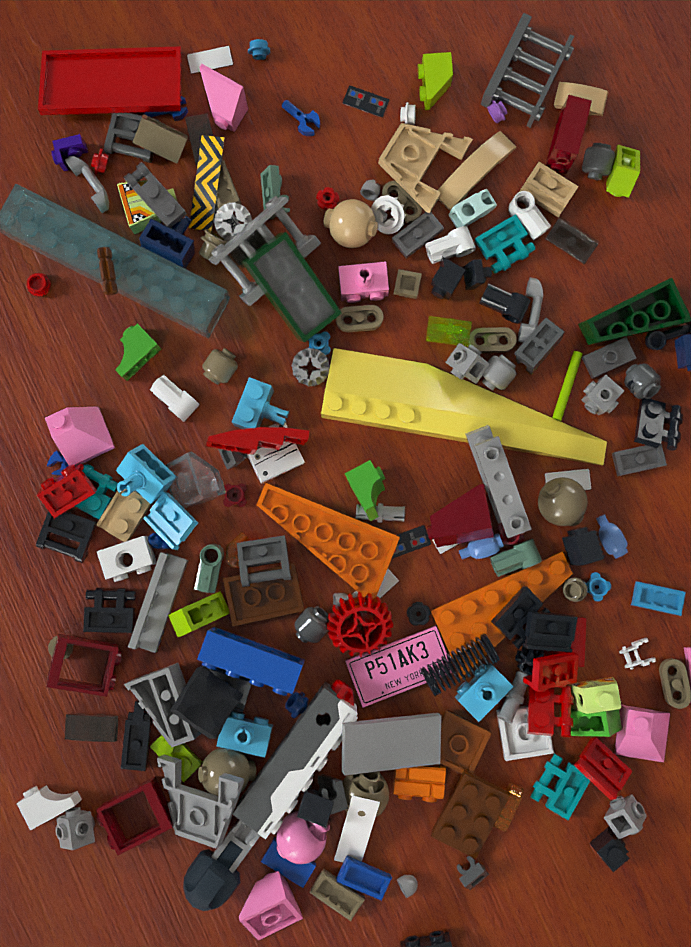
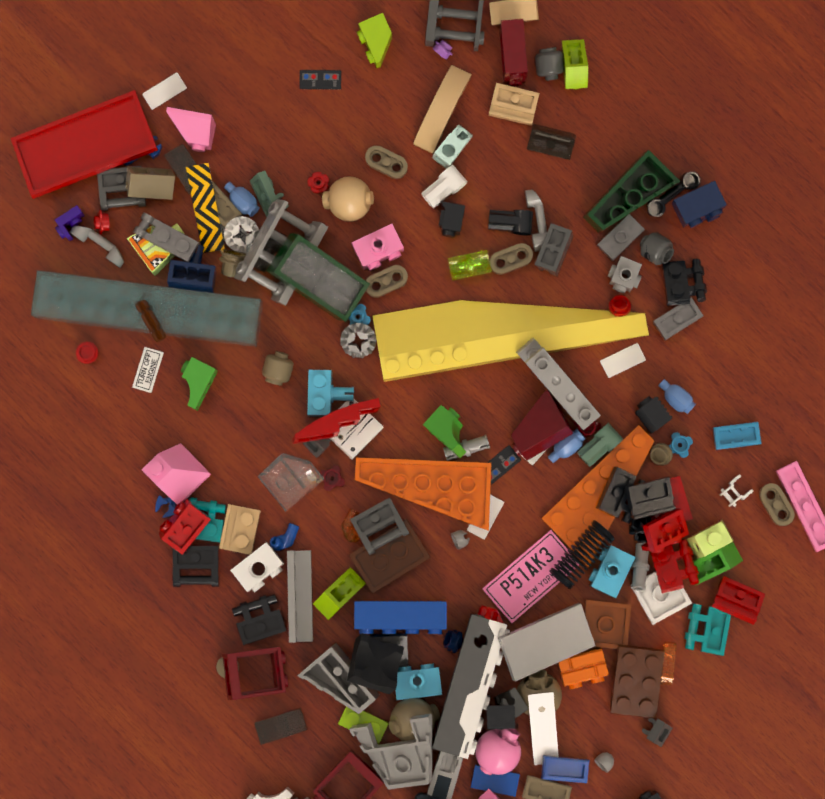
camera: 15 degrees left, 0 degrees up
(93, 323) = (147, 369): none -> white sticker
(136, 739) = (324, 721): black hinge -> none
(145, 474) = (247, 488): medium azure brick -> none
(170, 520) = (284, 520): medium azure plate -> none
(178, 401) = (251, 413): white piece -> none
(209, 570) = (334, 553): sand green piece -> none
(246, 189) = (242, 199): none -> medium blue plant
(259, 49) = (207, 67): dark azure plate -> none
(312, 117) = (278, 112): blue bar -> none
(312, 625) = (442, 567): dark grey head -> none
(343, 634) = (499, 539): red gear -> none
(370, 190) = (354, 160): light grey hinge -> none
(386, 203) = (369, 177): white gear -> none
(407, 284) = (417, 235): dark tan plate -> none
(408, 114) = (363, 79): white plate -> none
(412, 153) = (380, 115): tan wing -> none
(417, 234) = (410, 186): flat silver plate -> none
(418, 607) = (525, 524): black plate -> none
(467, 363) = (496, 288): light grey brick -> none
(475, 274) = (475, 205): black tile -> none
(499, 373) = (526, 286): light grey head -> none
(501, 237) = (486, 164): teal plate -> none
(531, 217) = (506, 136): white piece -> none
(563, 502) = (622, 381): dark tan brick -> none
(567, 385) = (592, 275): lime bar -> none
(585, 425) = (620, 305): none -> red plate
(610, 849) = (768, 666): black window -> none
(625, 816) = (771, 633): light grey brick -> none
(642, 733) = (764, 559): bright pink slope -> none

